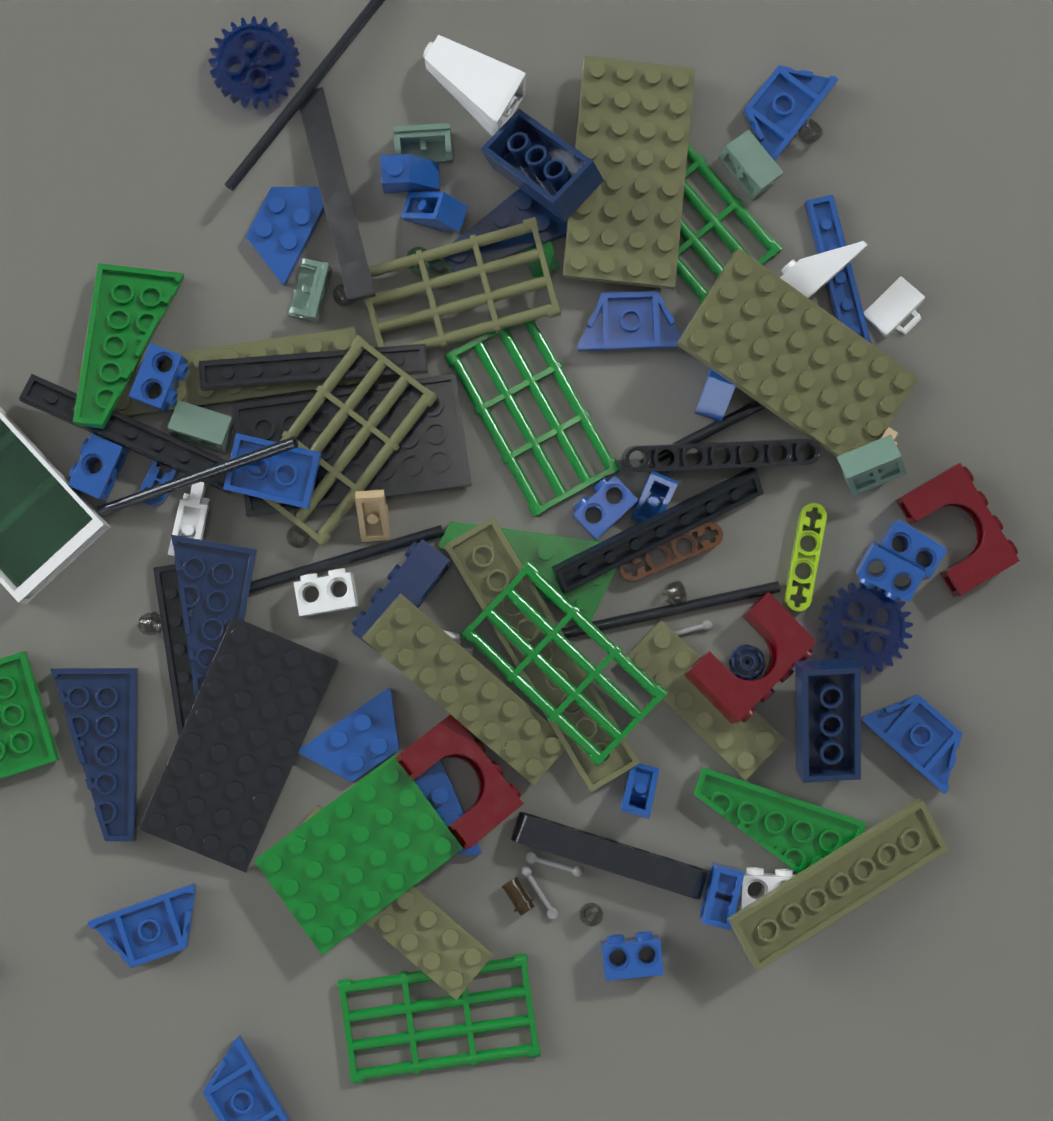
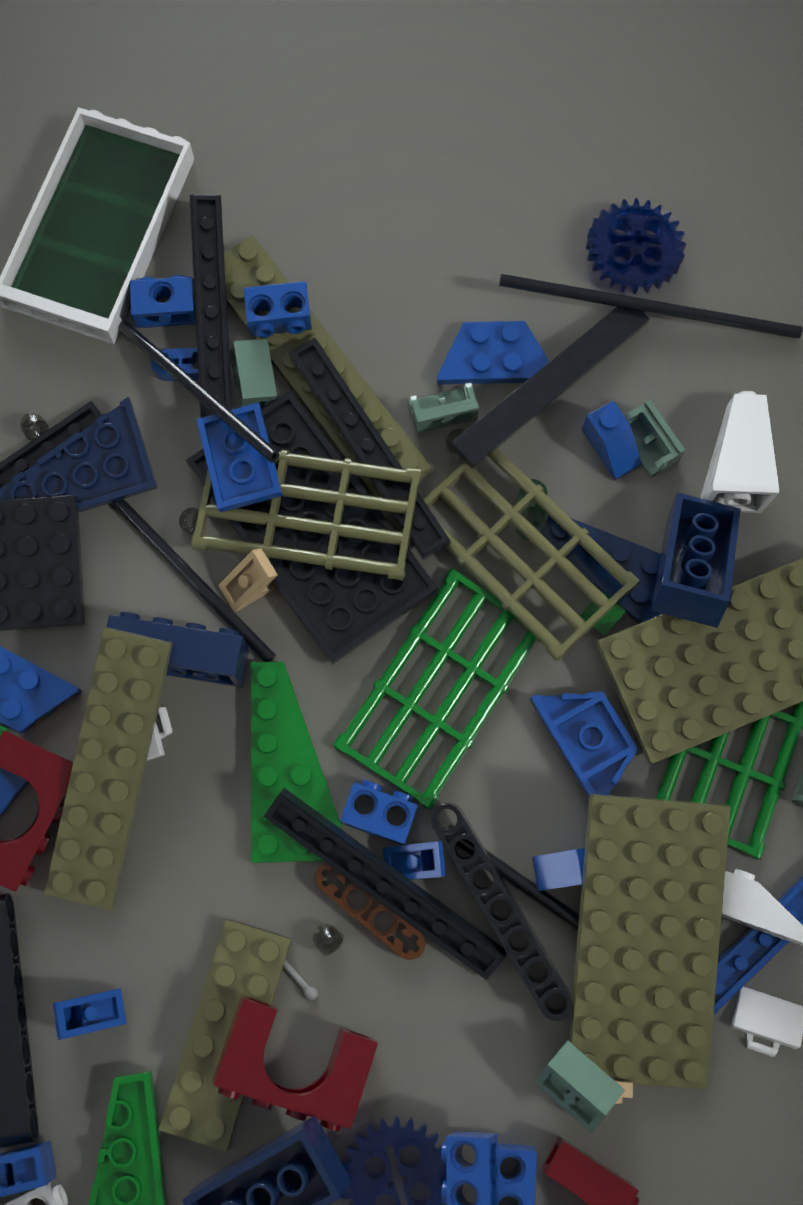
camera: 60 degrees right, 10 degrees down
(122, 322) = (322, 250): green wing -> none
(191, 514) = (162, 409): white hinge -> none
(326, 601) = (142, 578): white brick -> none
(434, 211) = (590, 484): blue slope -> none
(488, 568) = (186, 832): olive plate -> none
(574, 693) = (161, 883): green door -> none
(670, 610) = (306, 943): black piece -> none
(755, 666) = (279, 1064): dark blue plate -> none
(808, 558) = (442, 1071): lime beam -> none

